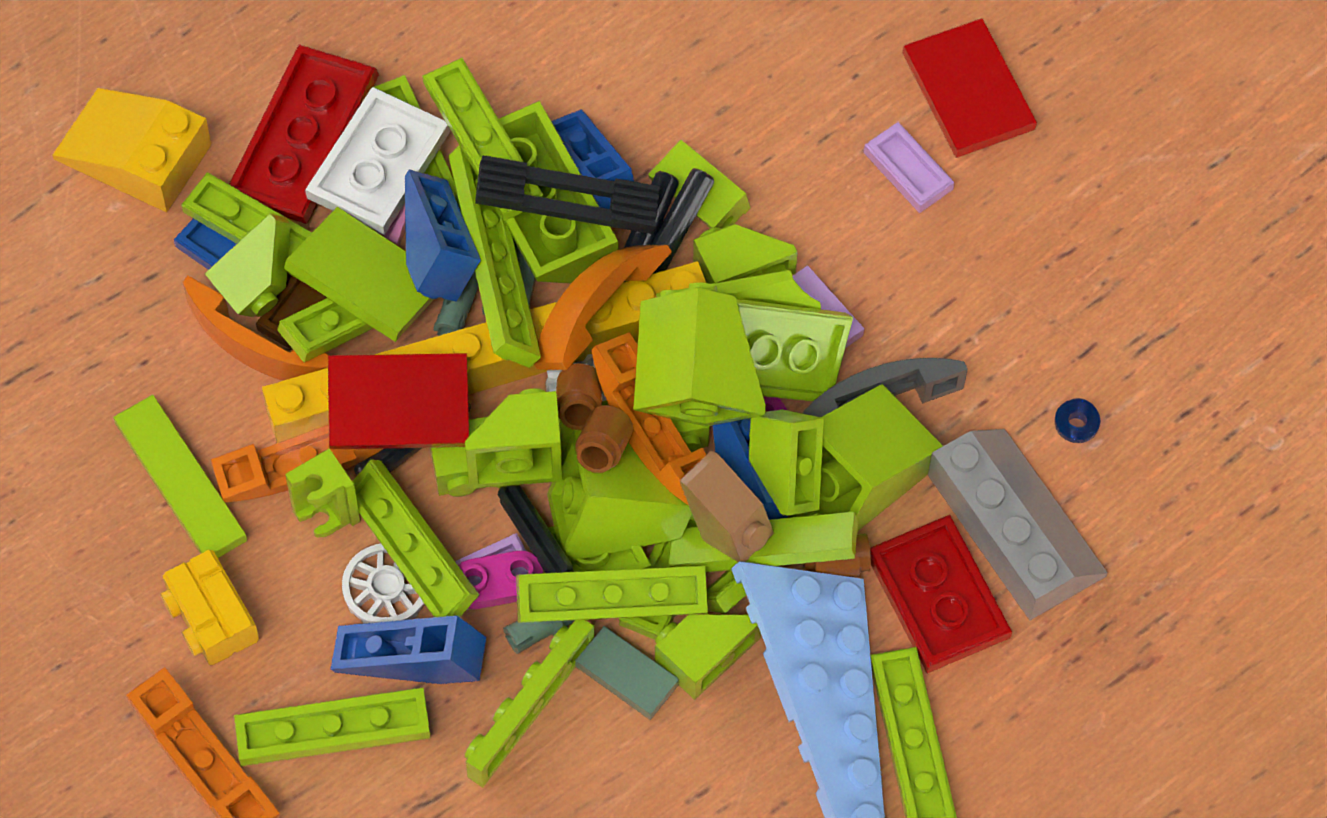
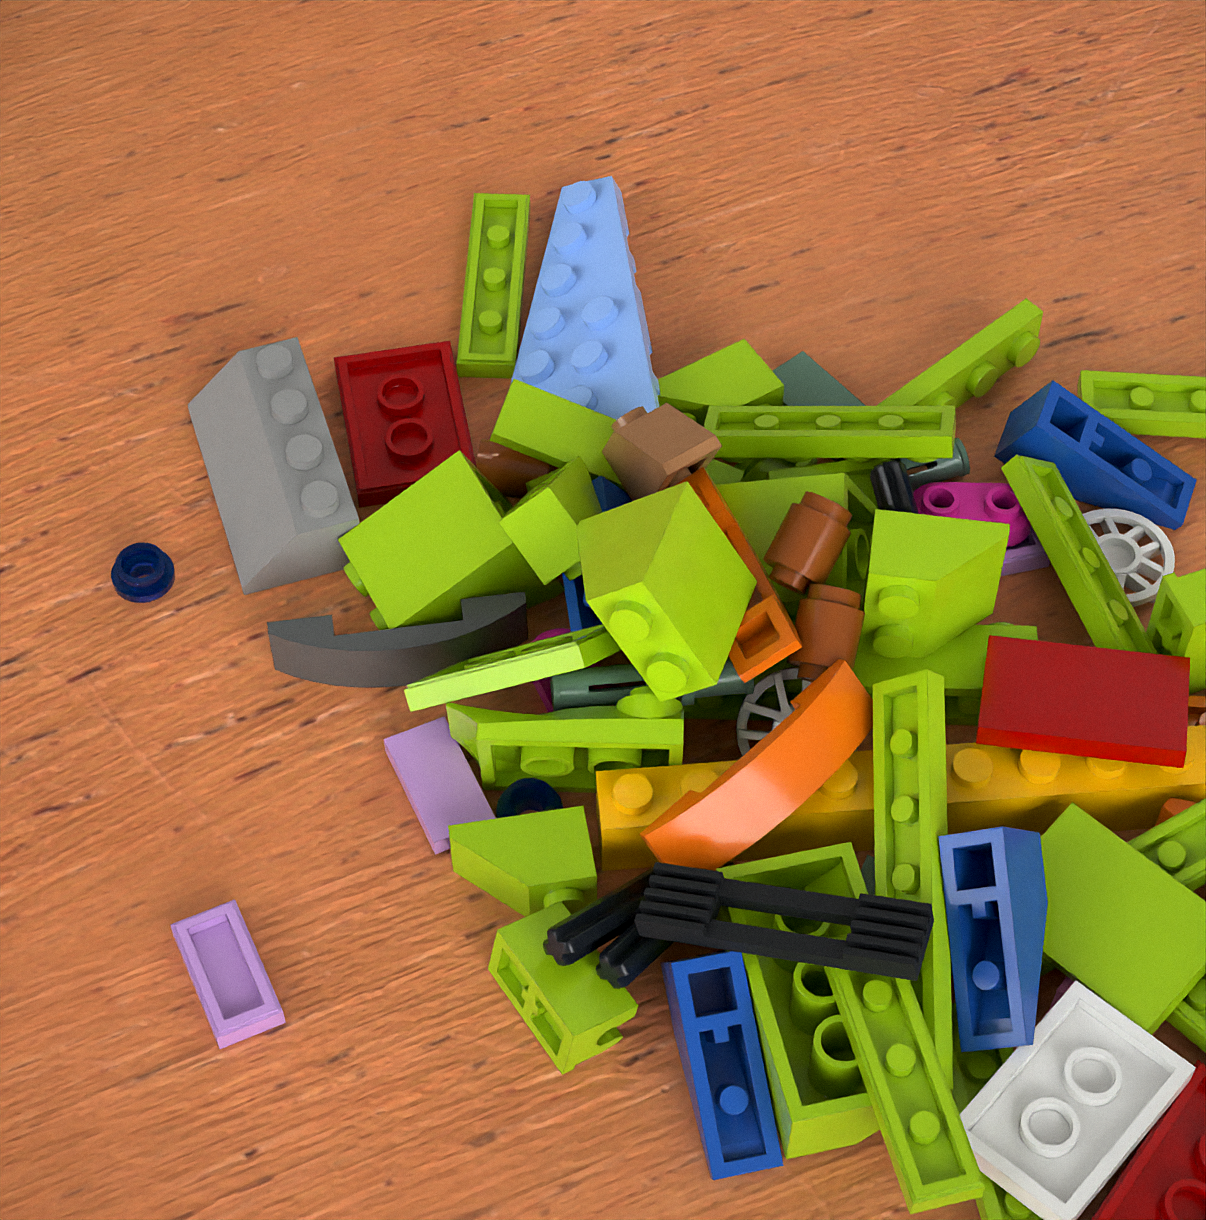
camera: 165 degrees left, 10 degrees down
(969, 87) = (81, 1083): red tile -> none

